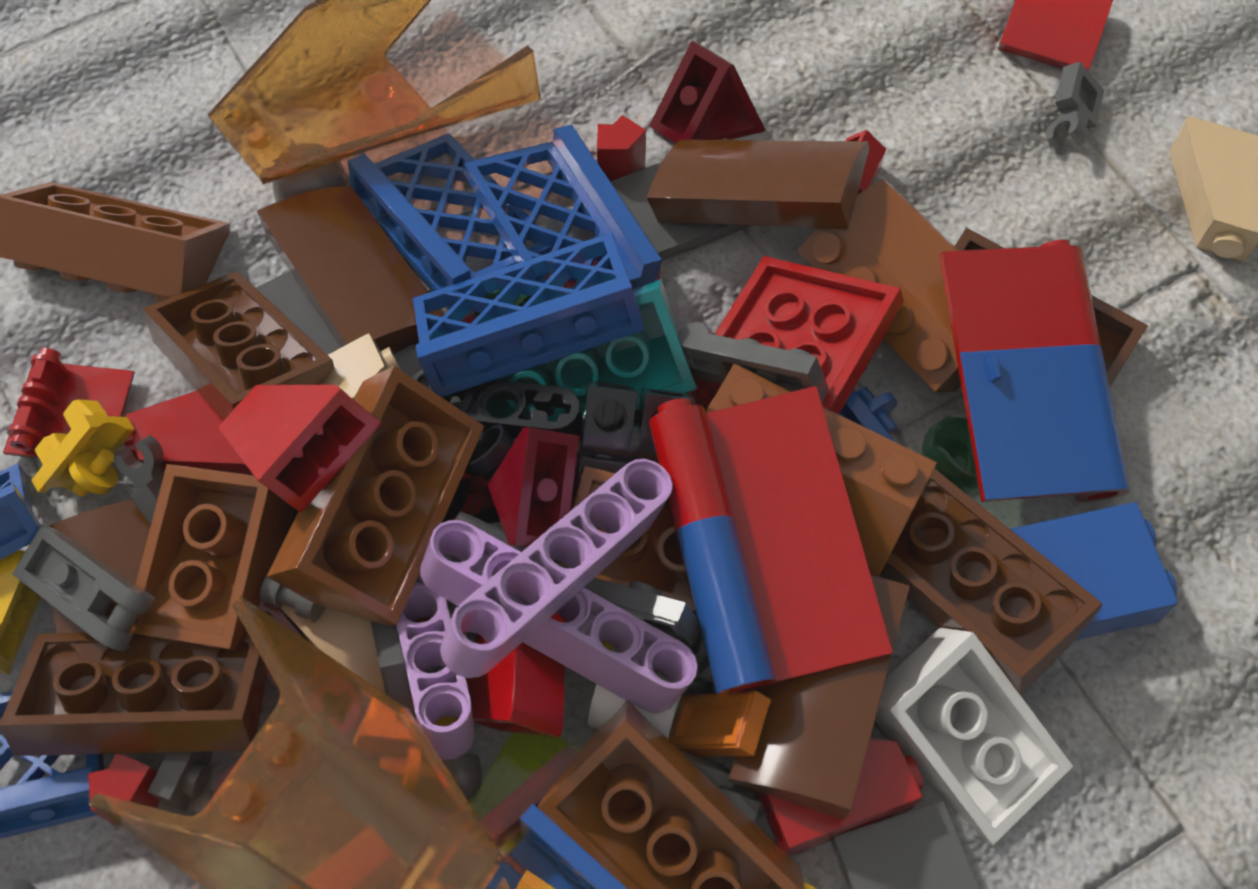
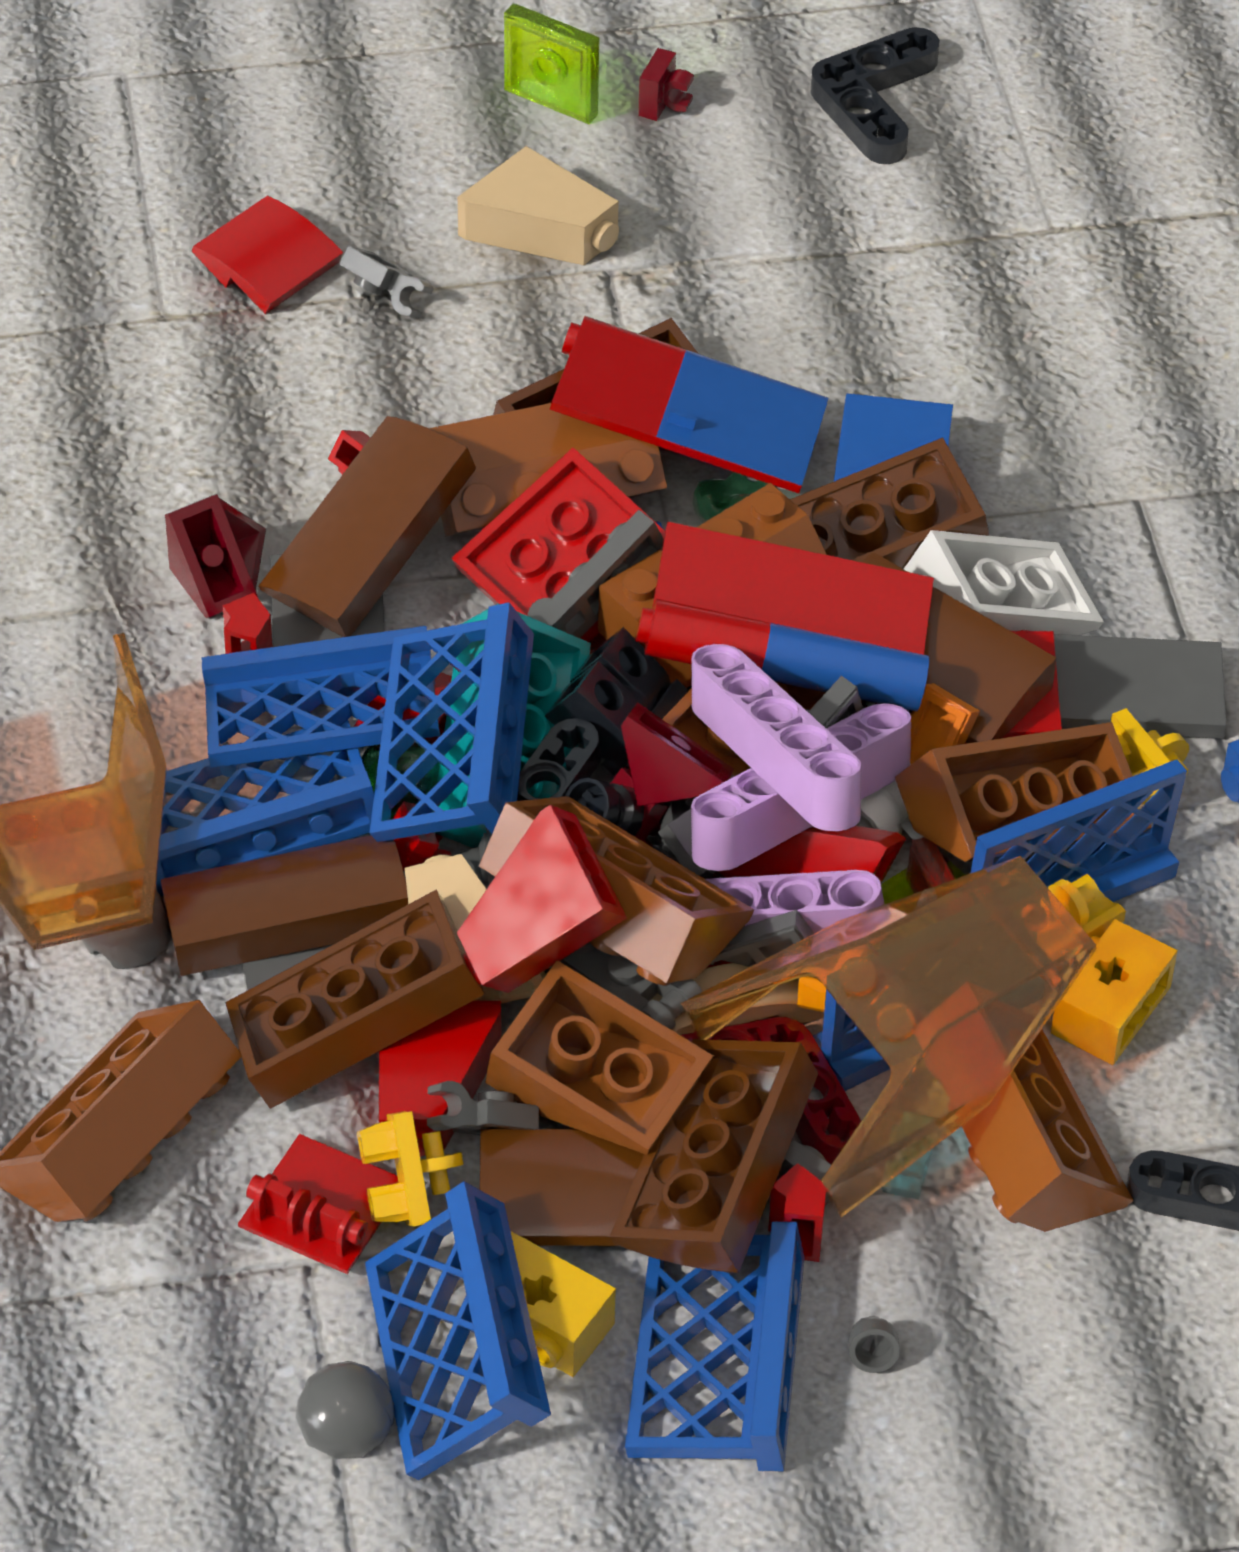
camera: 70 degrees left, 15 degrees down
(82, 587) = (585, 1168): dark grey plate -> none

